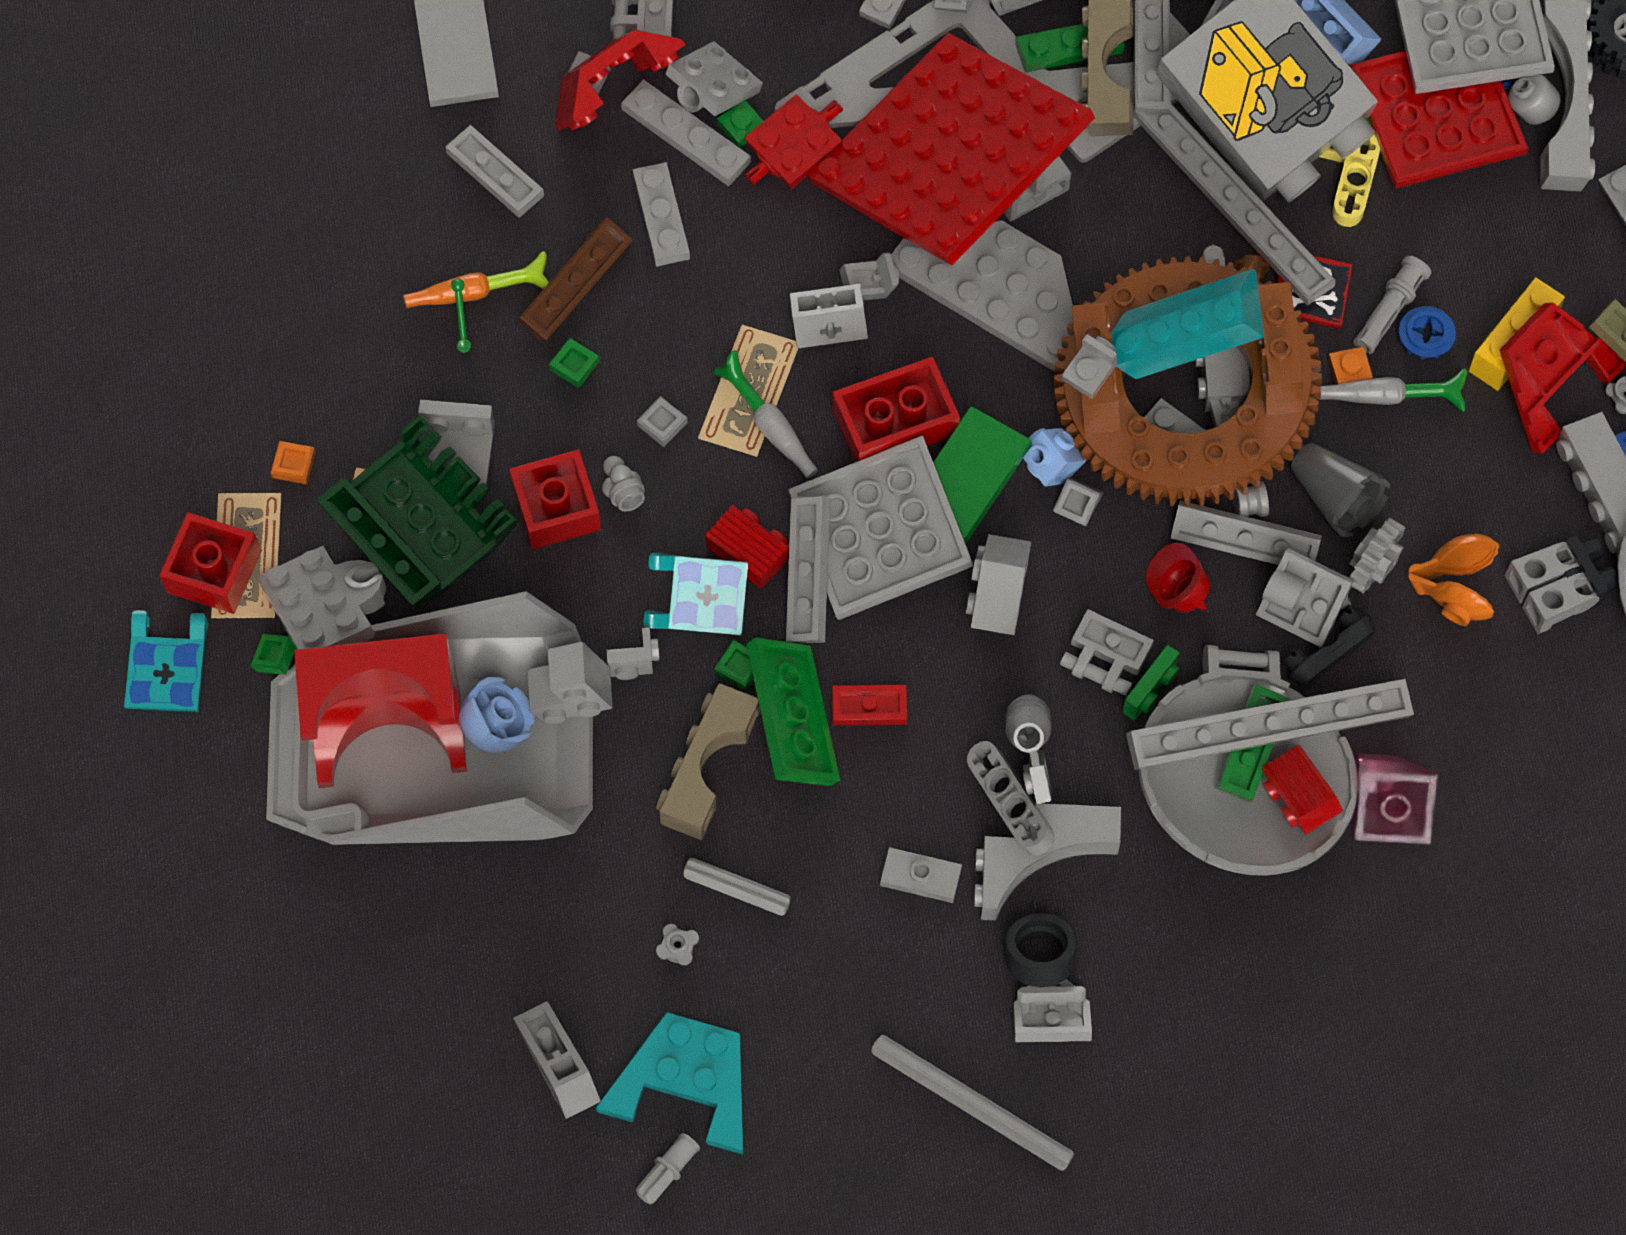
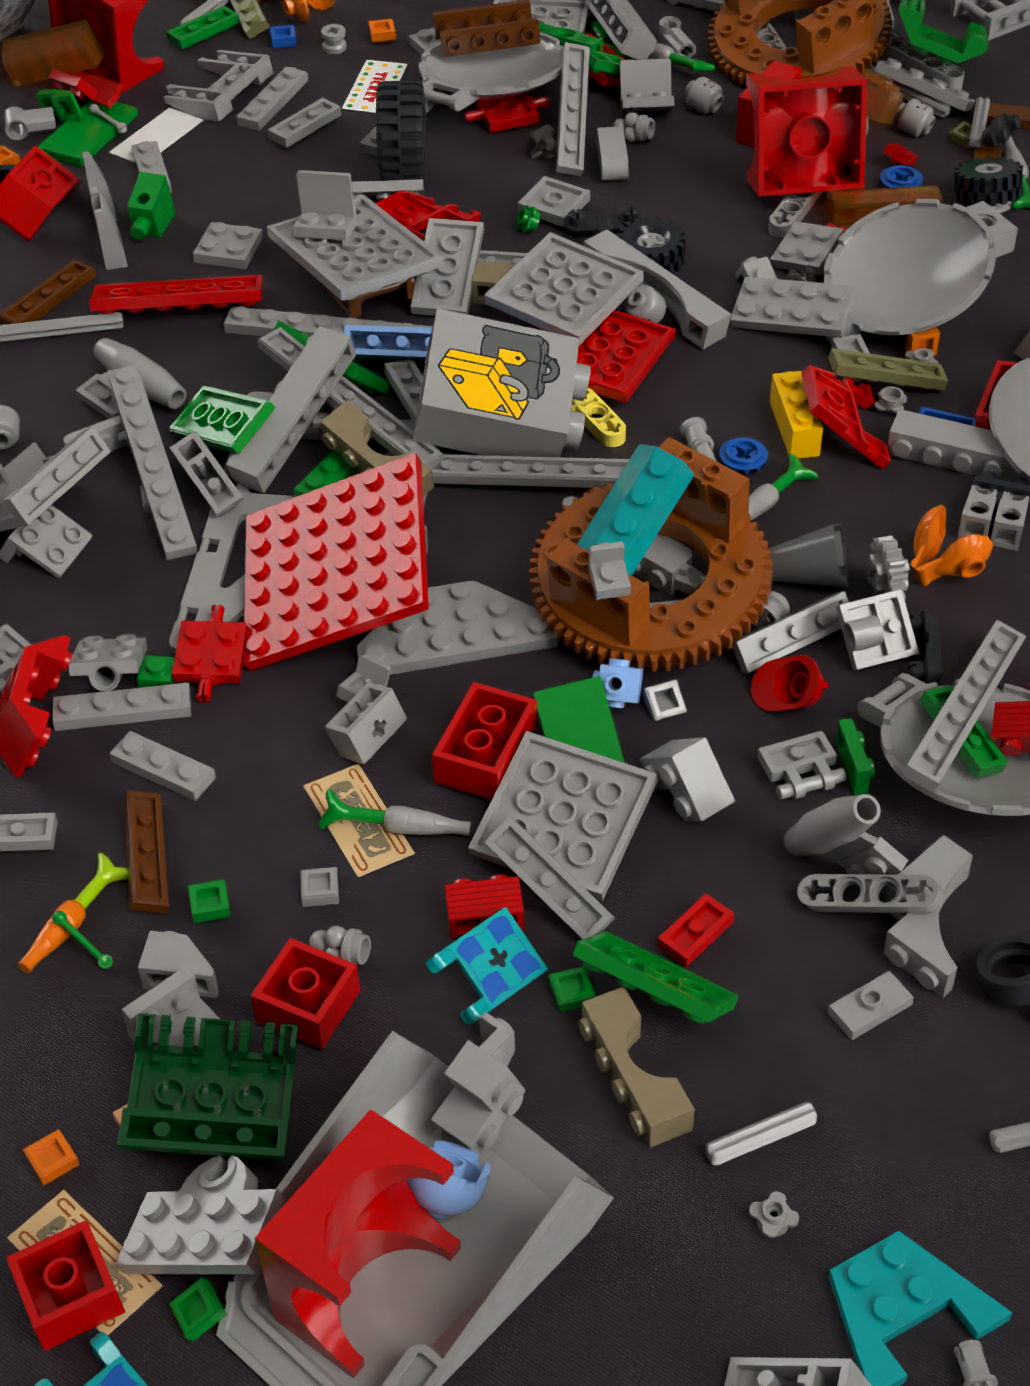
camera: 45 degrees left, 20 degrees down
(502, 387) = (170, 952): none -> light grey slope

